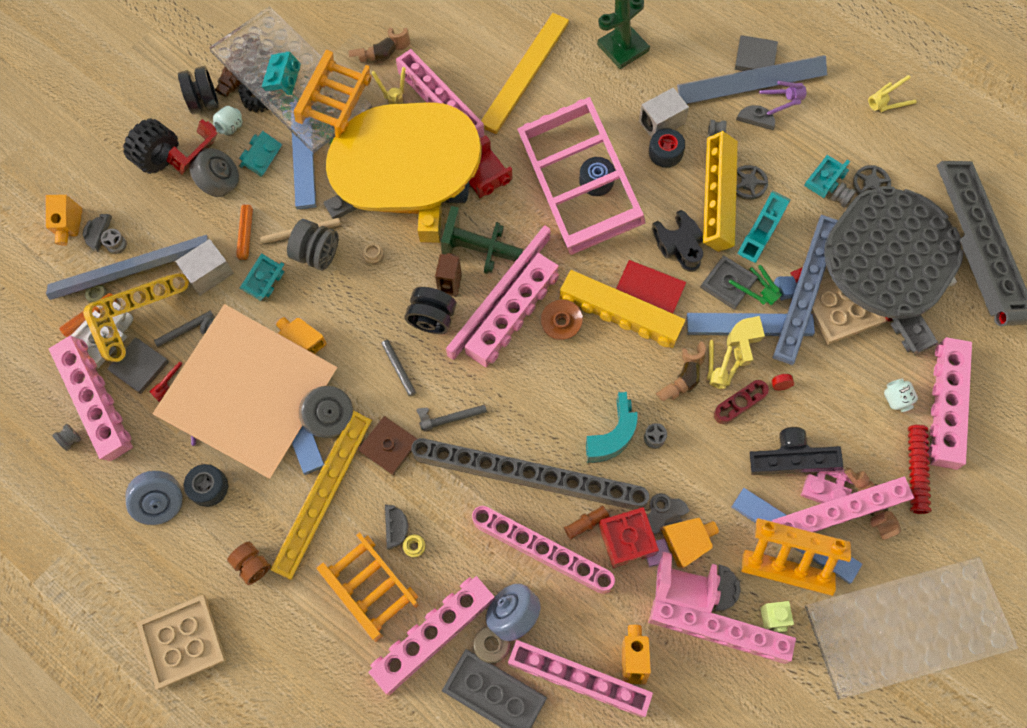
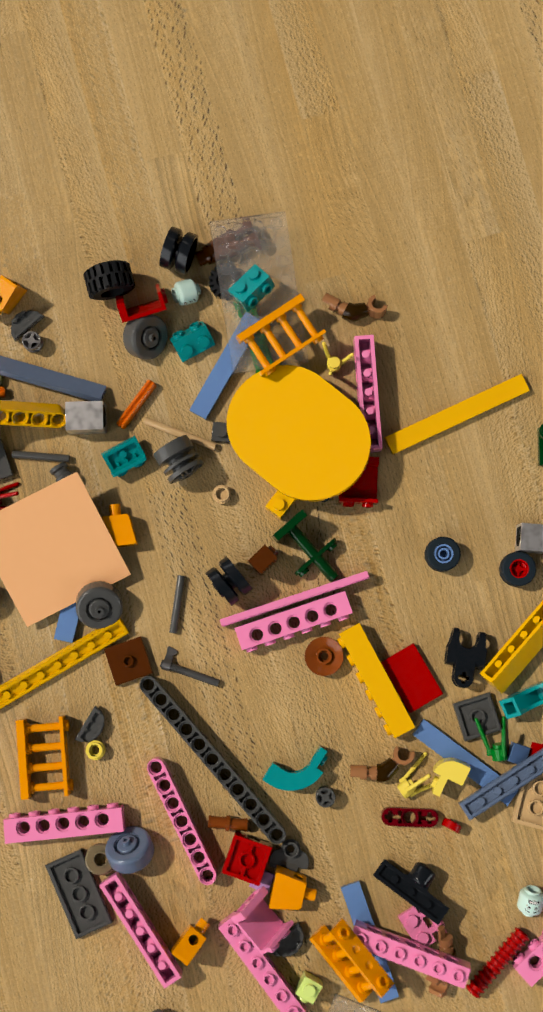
camera: 35 degrees right, 15 degrees up
(607, 228) = (412, 608): bright pink window -> none

